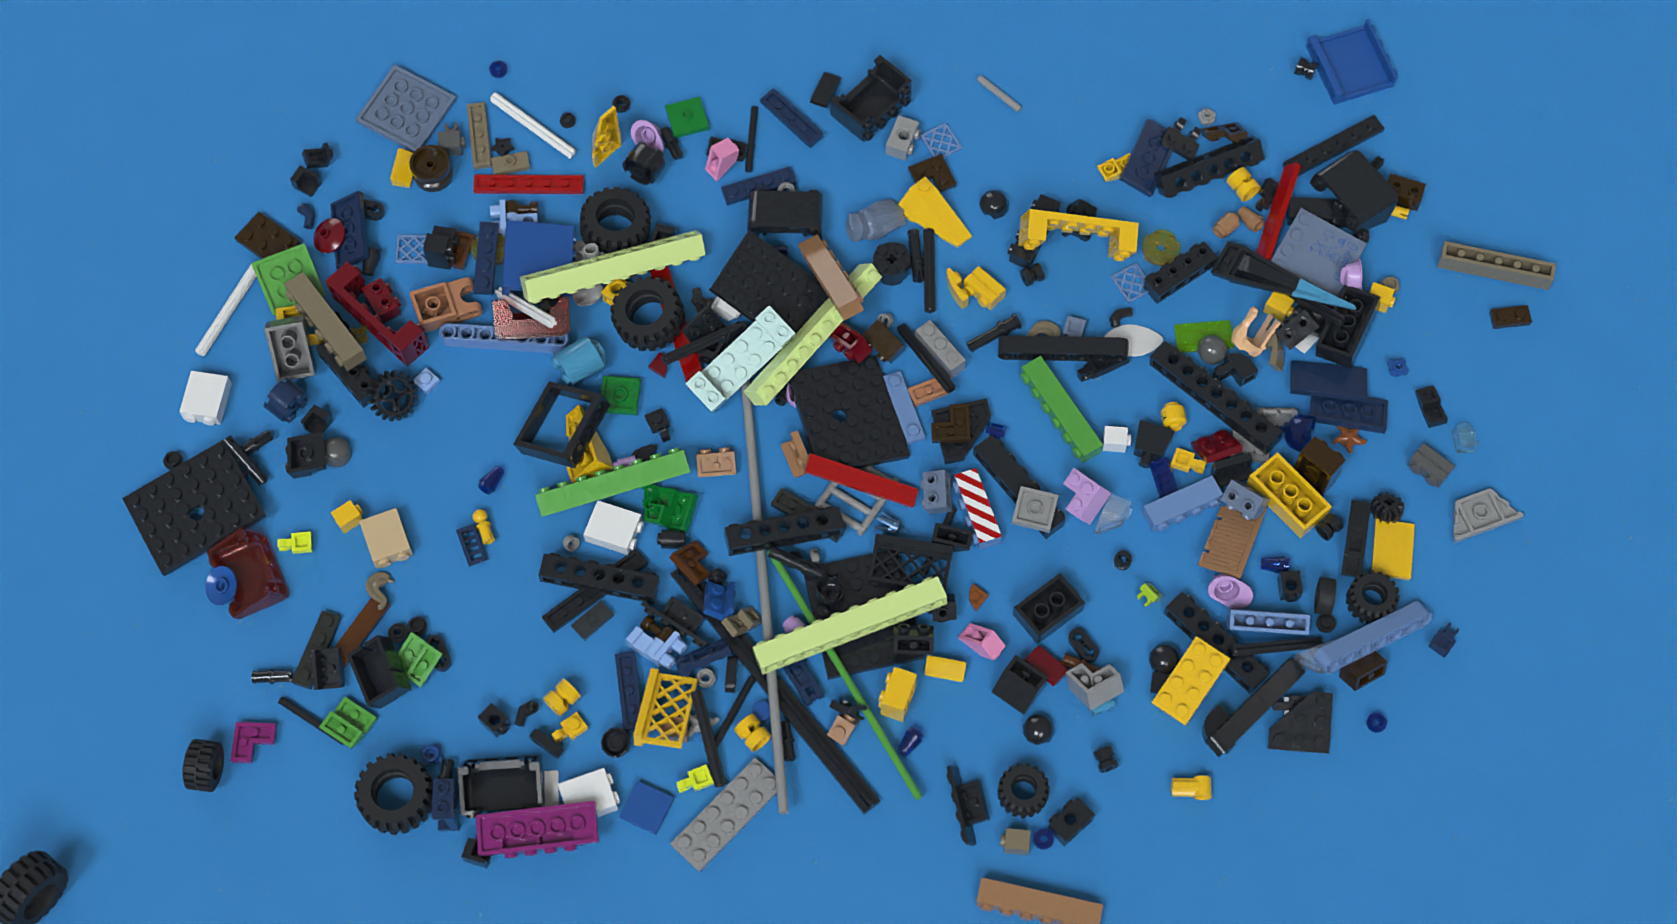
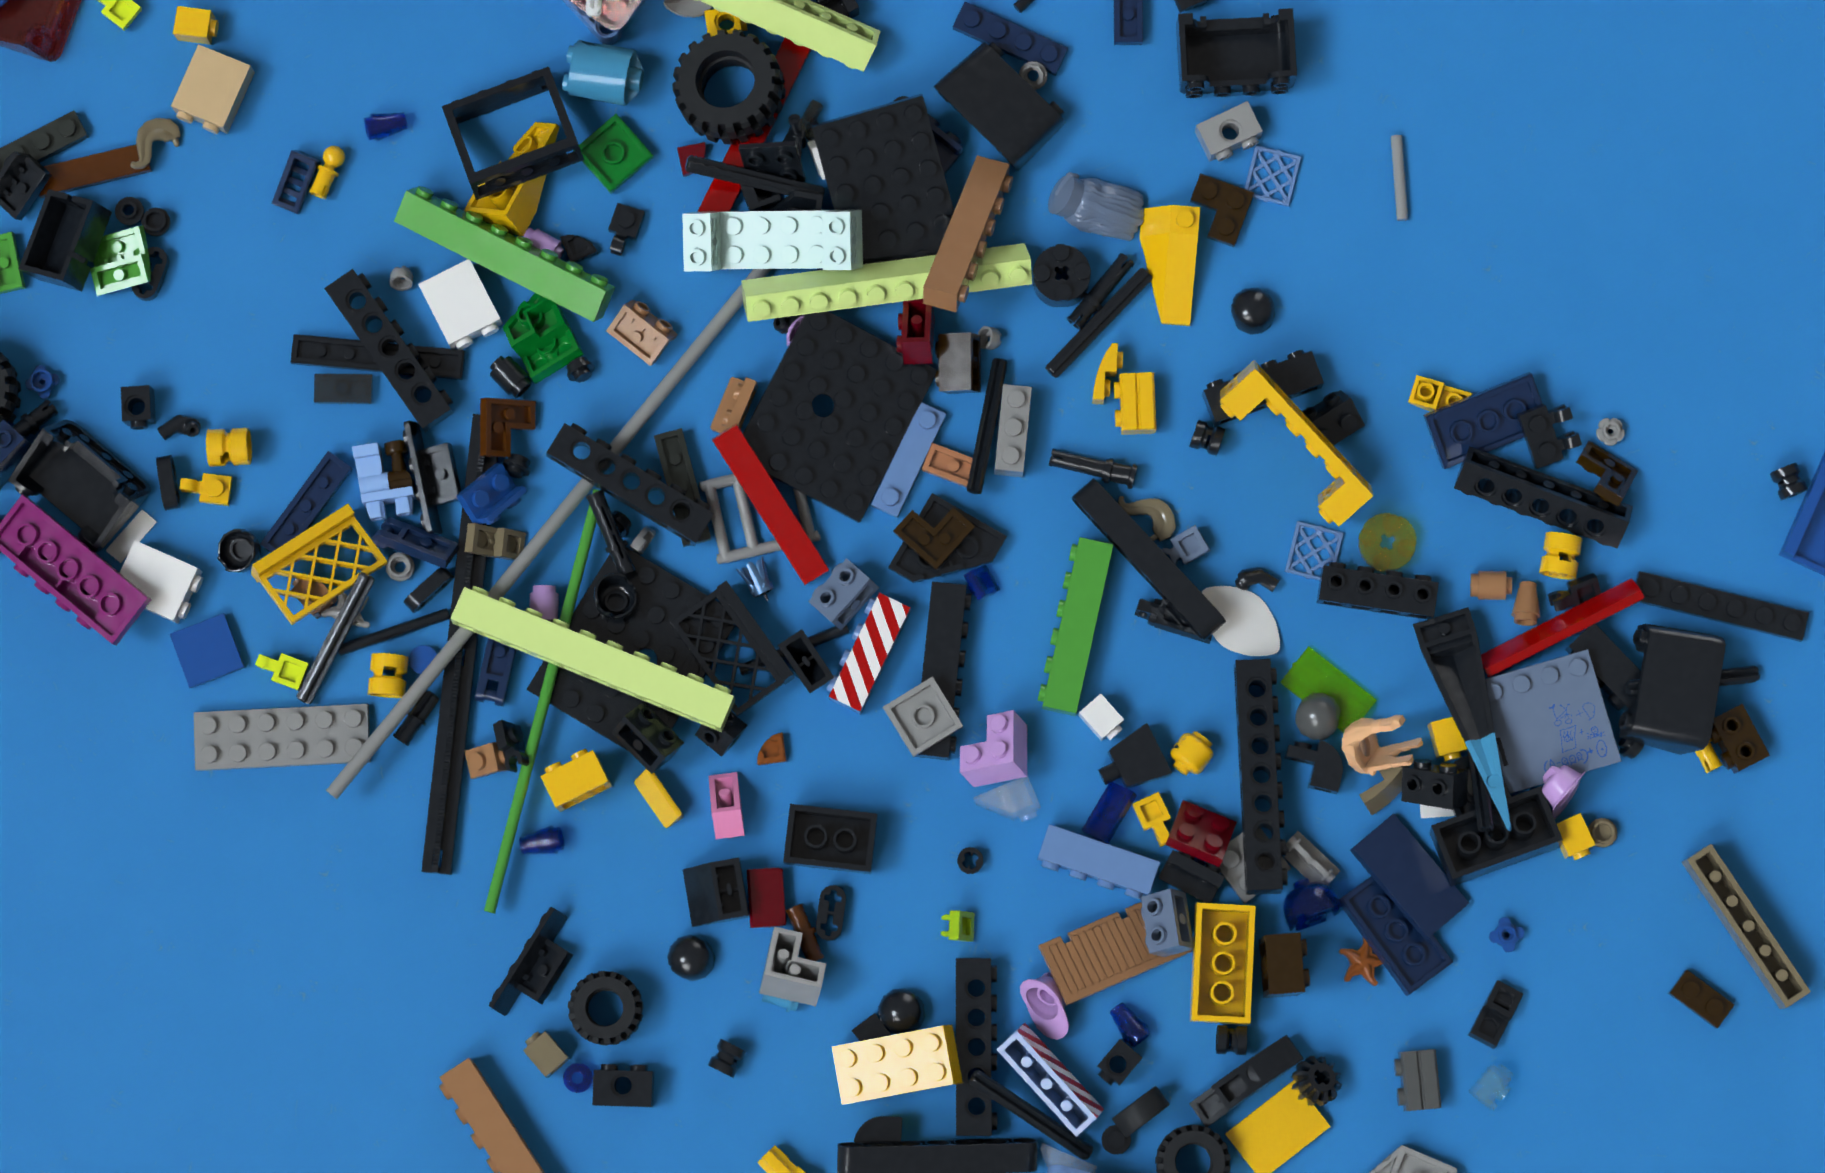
camera: 45 degrees right, 15 degrees up
(703, 506) = (579, 369): none -> black plate

